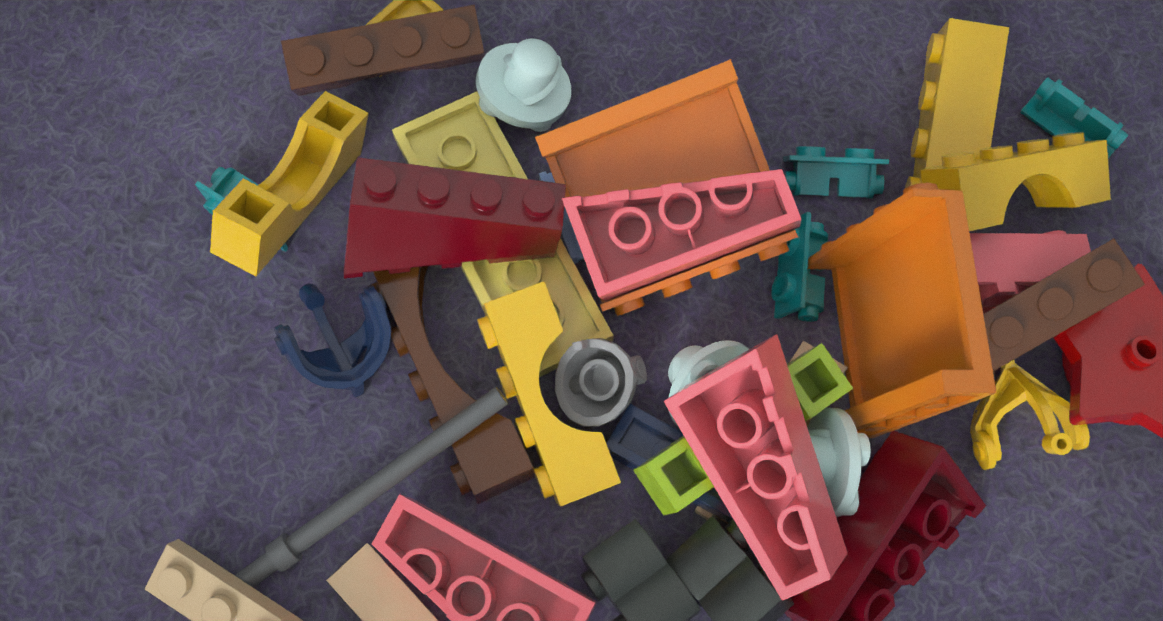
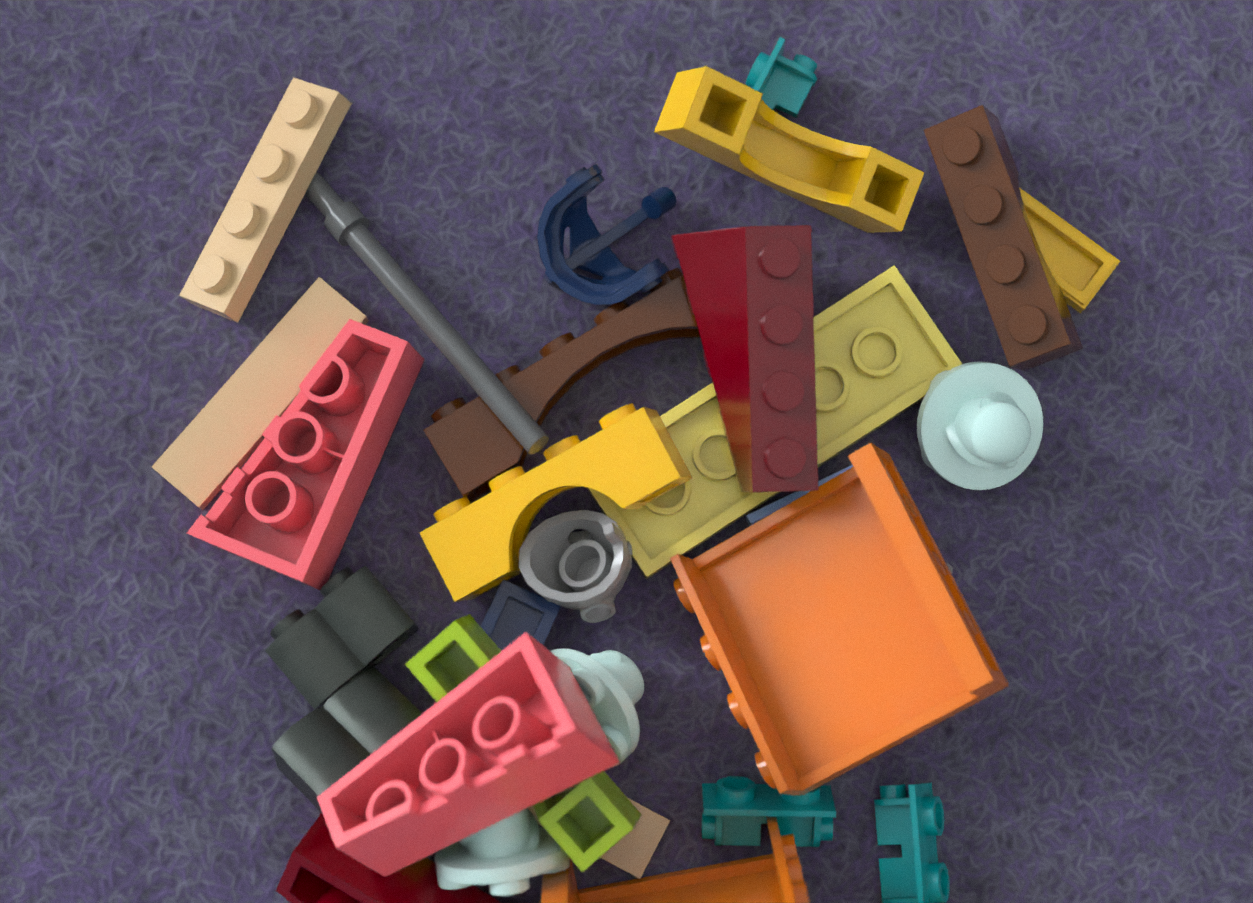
camera: 85 degrees right, 10 degrees up
(671, 228) = (771, 628): coral wedge -> none

